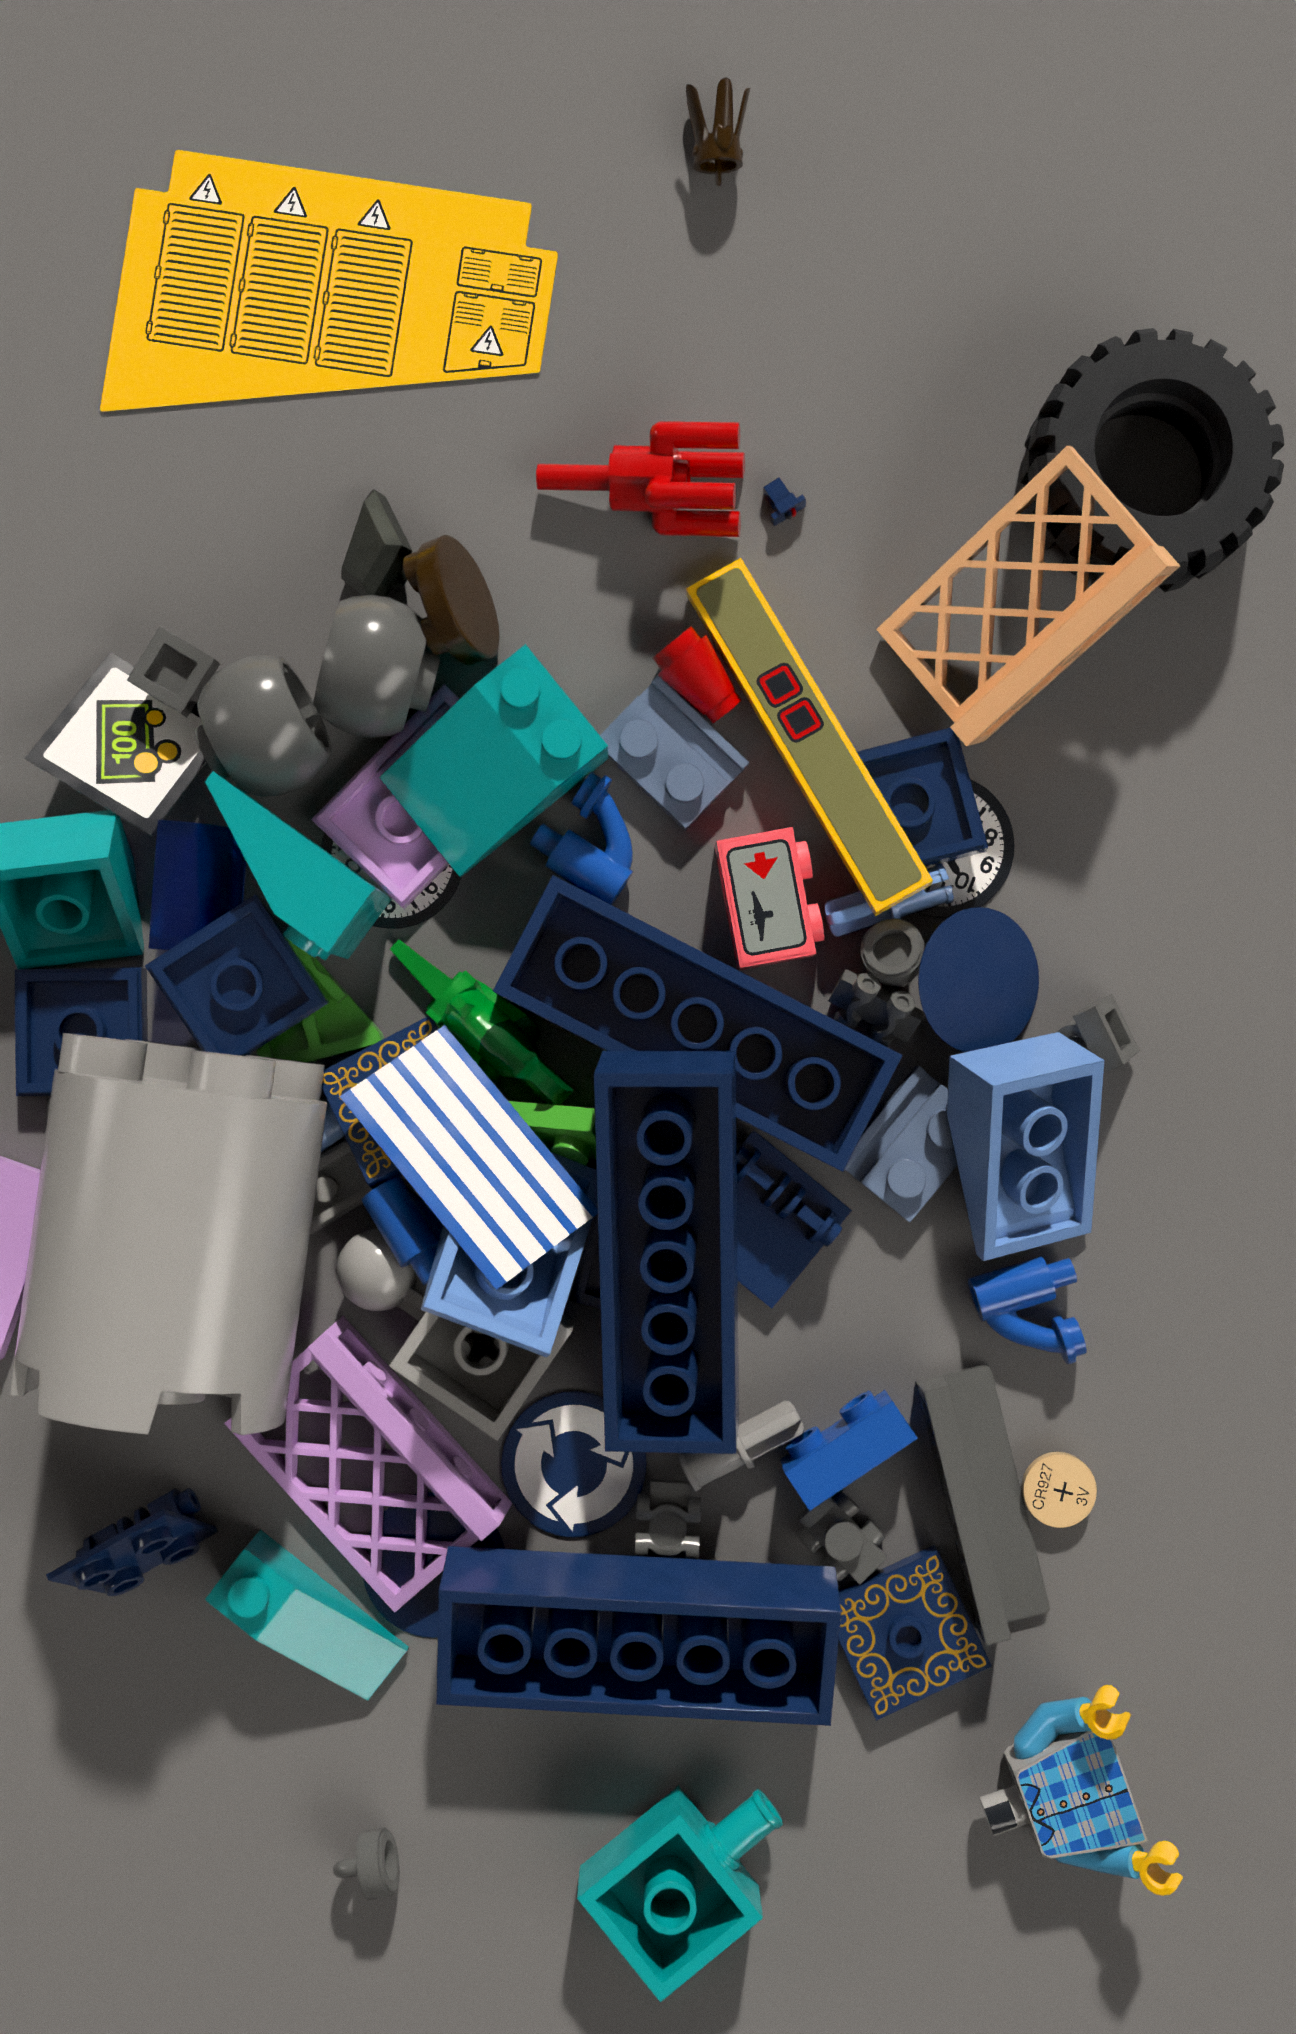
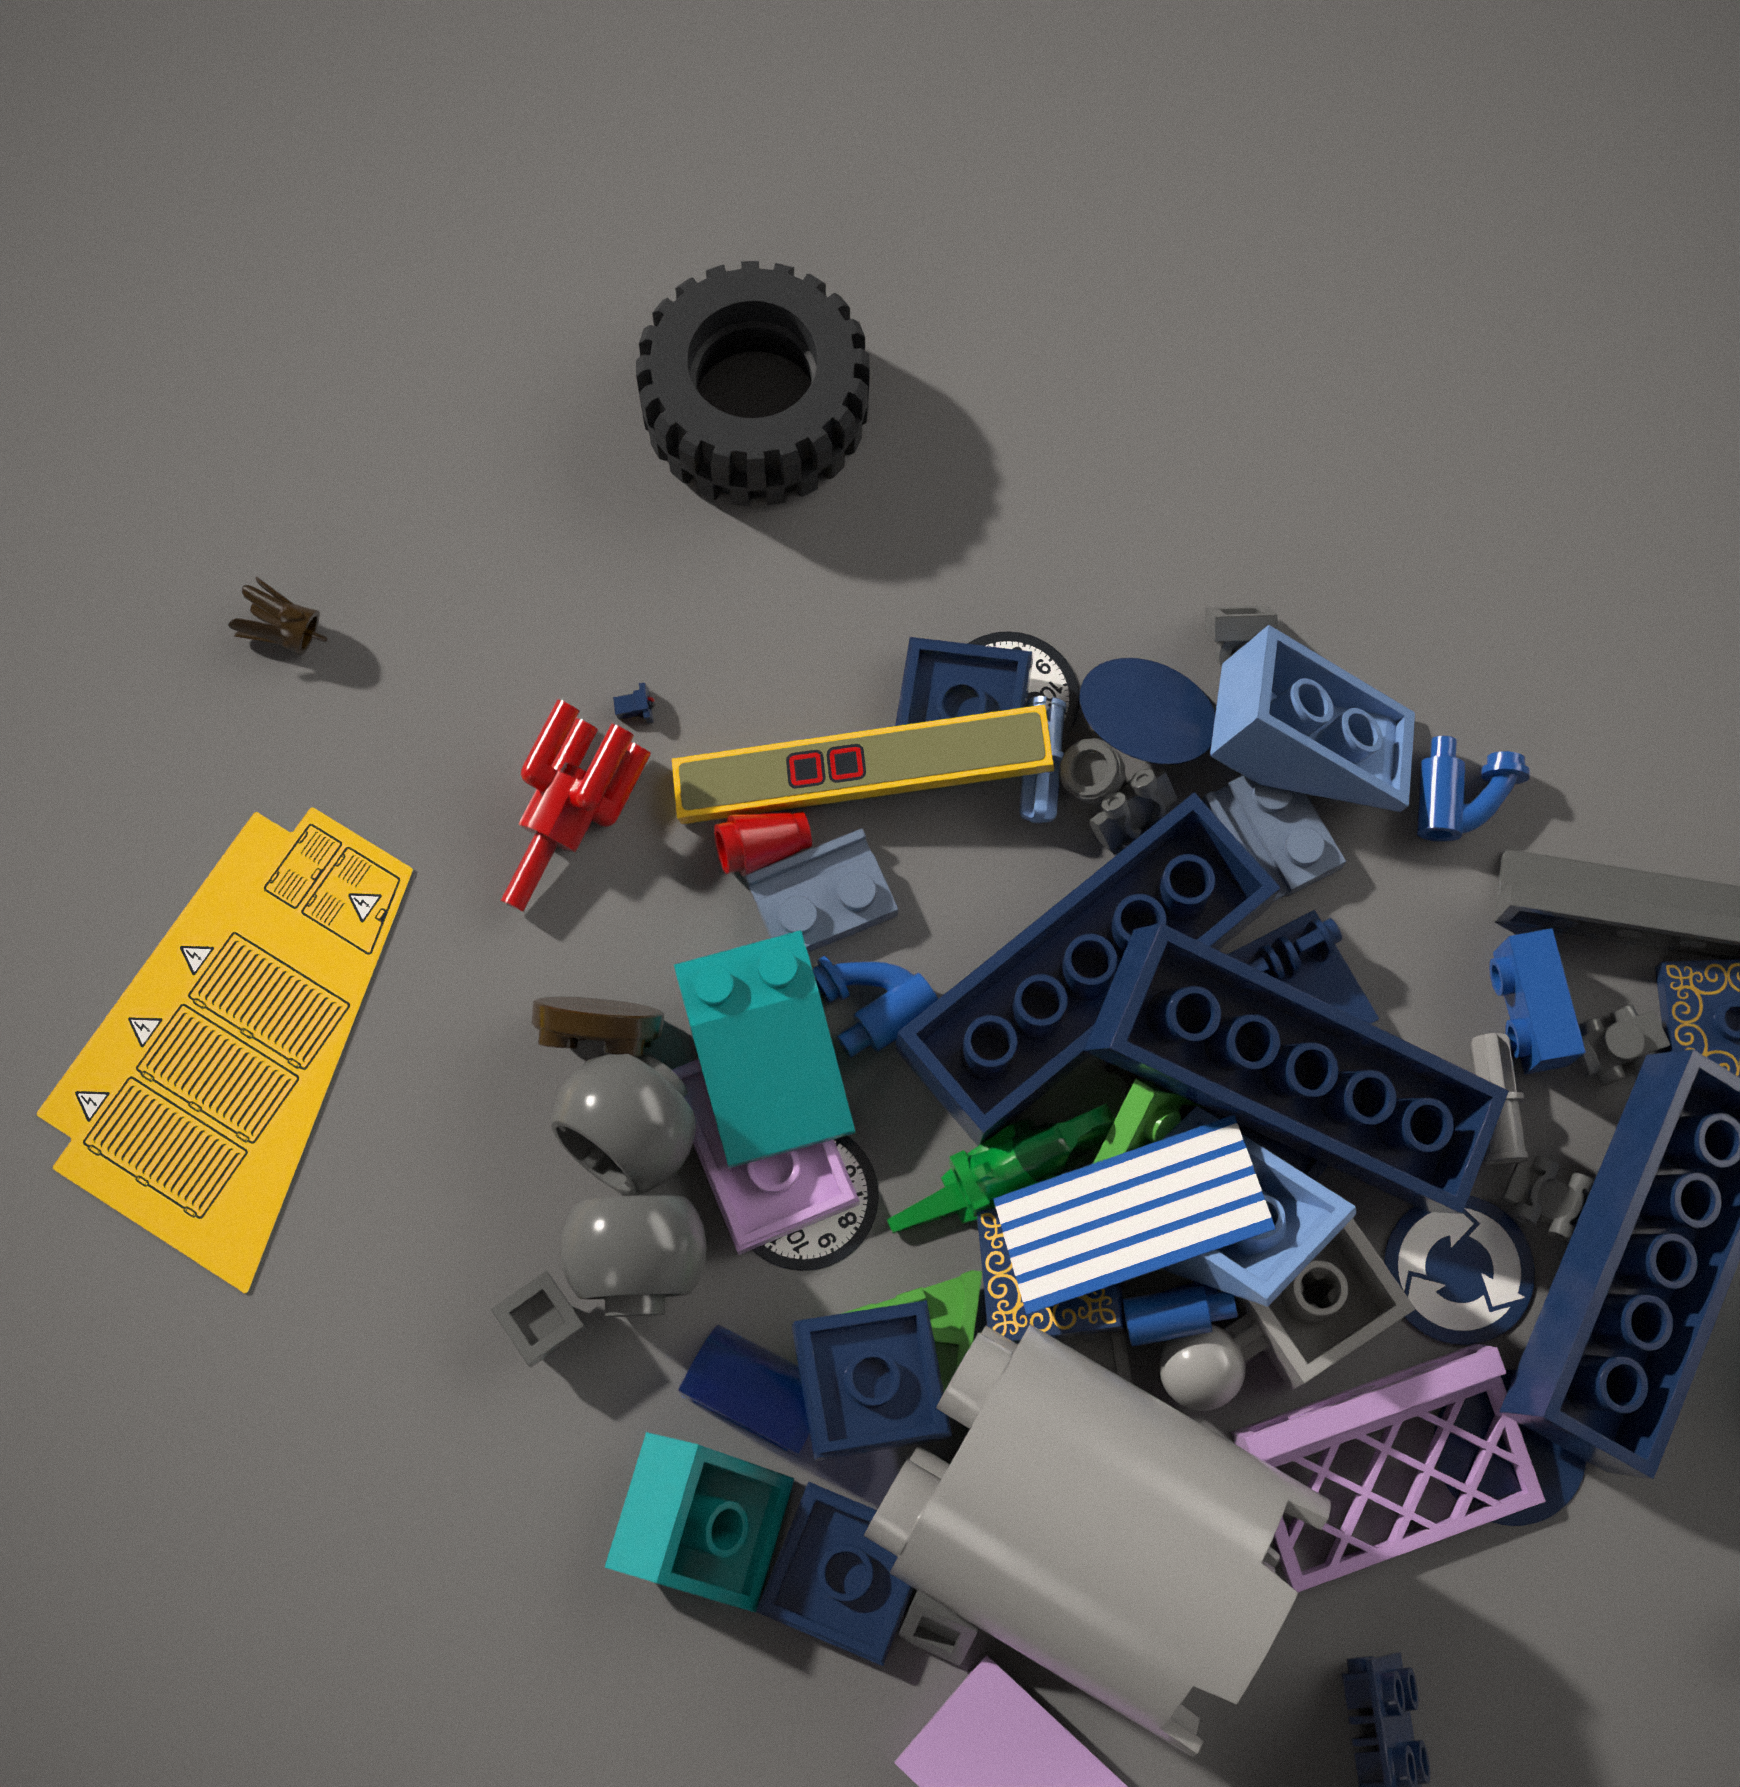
camera: 70 degrees left, 15 degrees down
(122, 747) = (585, 1400): sticker -> none
(304, 884) = (796, 1272): teal slope -> none
(305, 1618) = (1518, 1591): teal slope -> none
(376, 549) = (511, 1081): pearl dark grey piece -> none
(767, 898) = (995, 862): brick -> none
(1059, 1489) = (1642, 835): tan piece -> none
(1062, 640) = (880, 515): light nougat fence -> none

